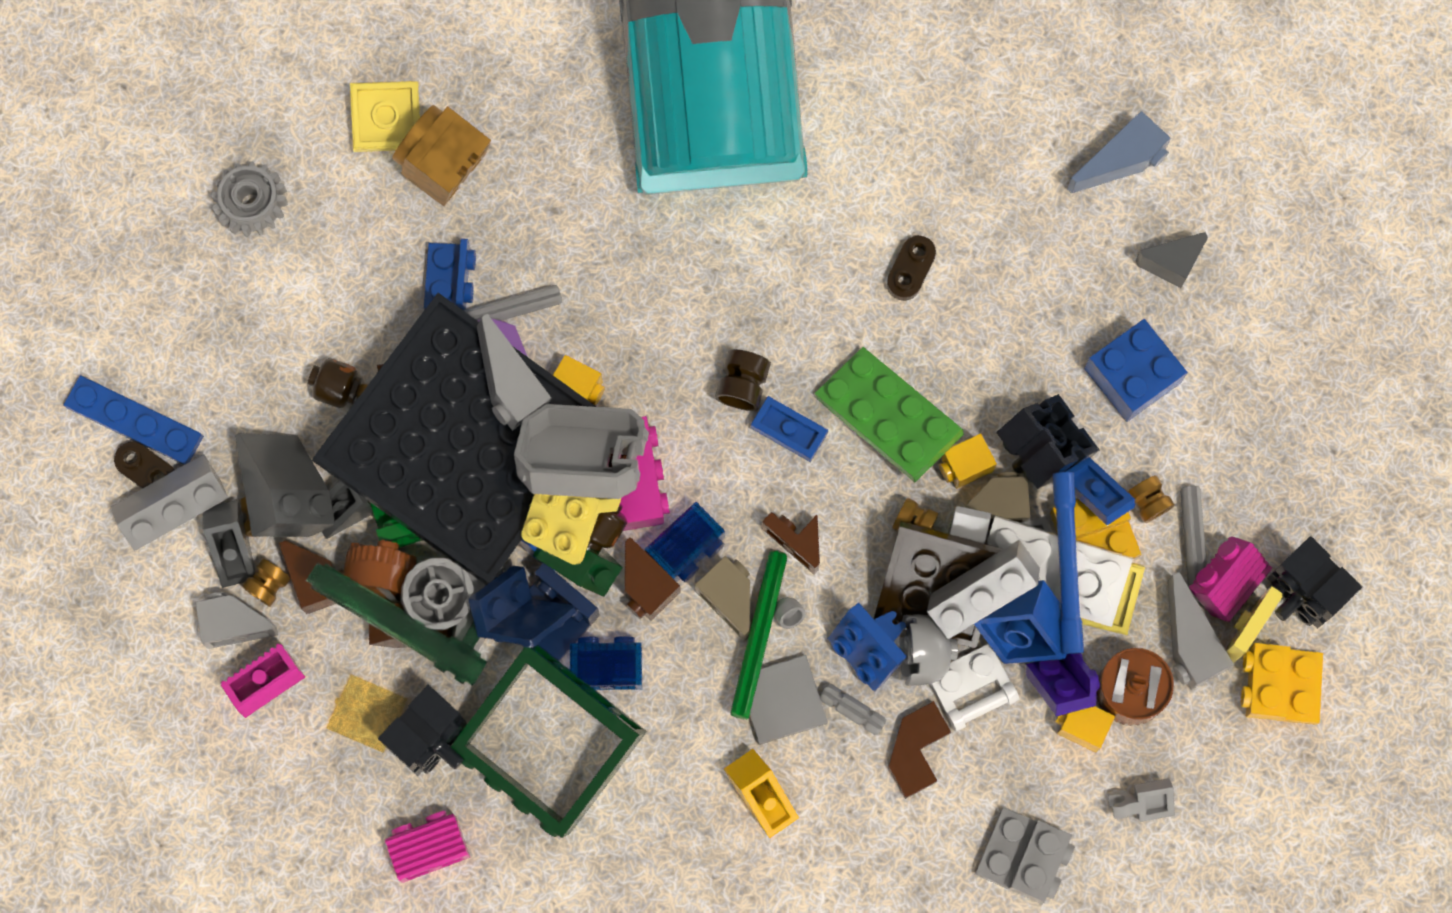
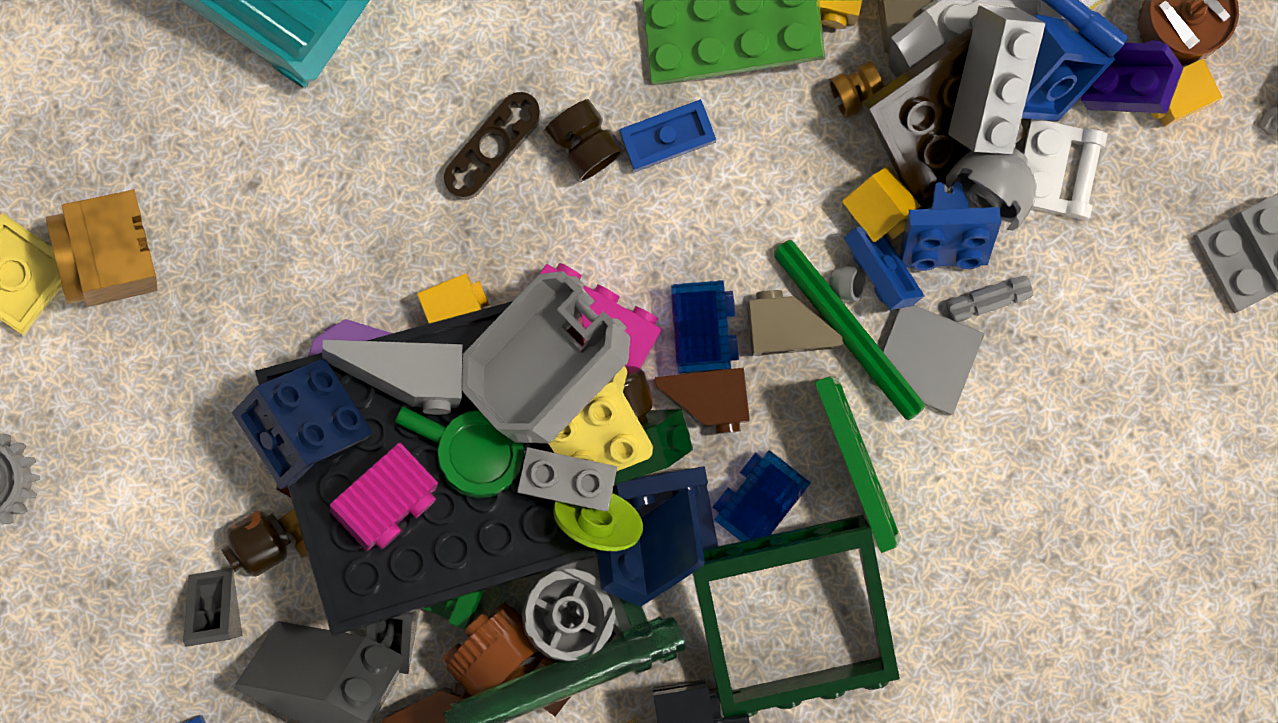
camera: 50 degrees left, 10 degrees up
(273, 389) = (211, 608): none -> dark grey slope
(420, 424) = (384, 498): none -> dark pink brick
(428, 339) = (300, 421): none -> dark blue bracket
(449, 272) = (235, 343): blue bracket -> none
(489, 457) = (470, 452): none -> green piece
(510, 563) = (600, 529): none -> lime dish
(518, 304) = (320, 302): light grey axle -> none
(520, 525) = (567, 479): none -> light grey hinge
(677, 703) = (858, 463): none -> green tile
(686, 319) = (521, 128): none -> dark brown beam
(761, 792) = (1002, 451): yellow slope -> none
(801, 546) = (797, 217): reddish brown slope -> none
(816, 623) = (885, 269): none -> blue plate
(852, 586) = (881, 204): none -> yellow brick
(907, 761) = (1080, 288): reddish brown tile -> none

